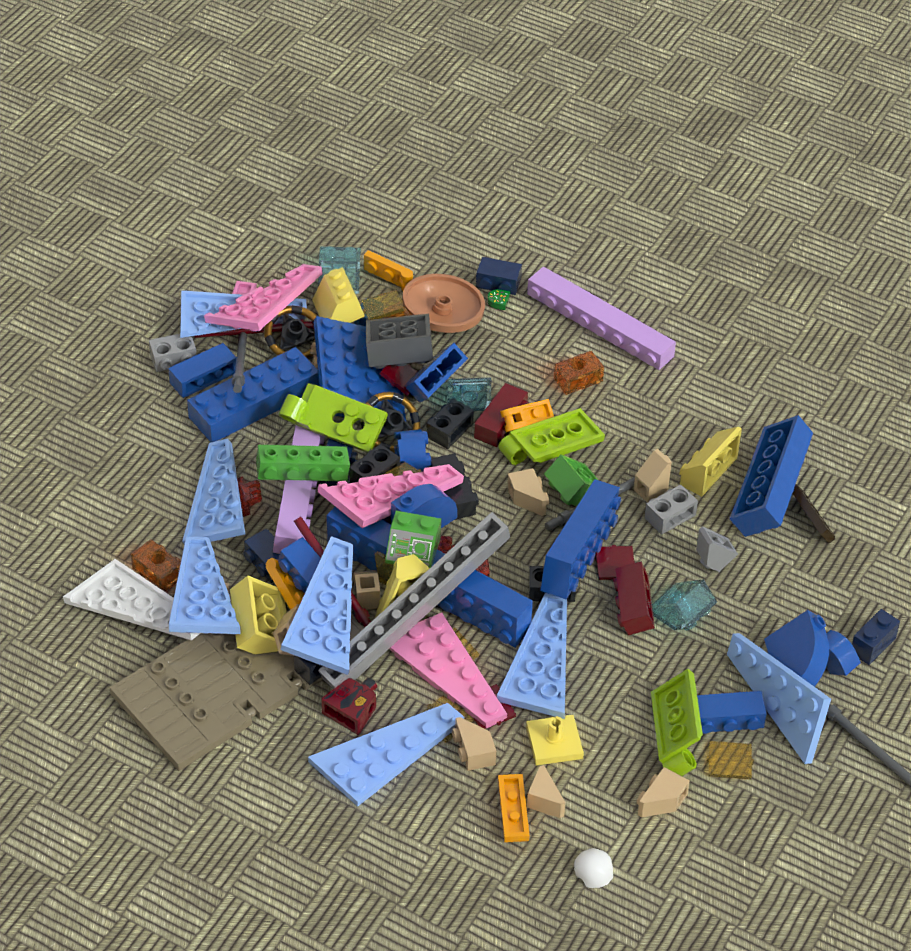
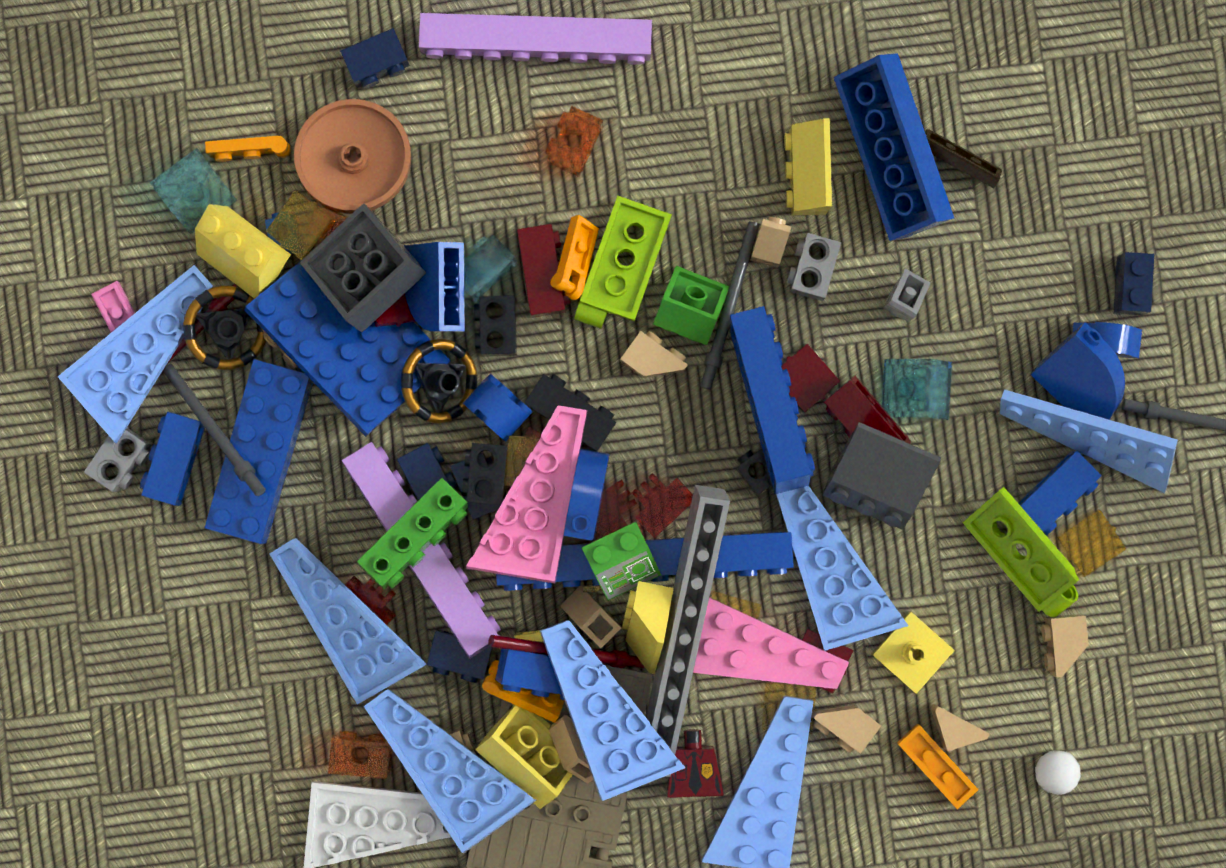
camera: 40 degrees left, 40 degrees up
(262, 305) = (165, 324): bright pink wing -> none
(318, 408) = (363, 445): lime hinge -> none
(498, 299) = (399, 90): green tile -> none
(617, 617) = (880, 476): none -> dark grey slope

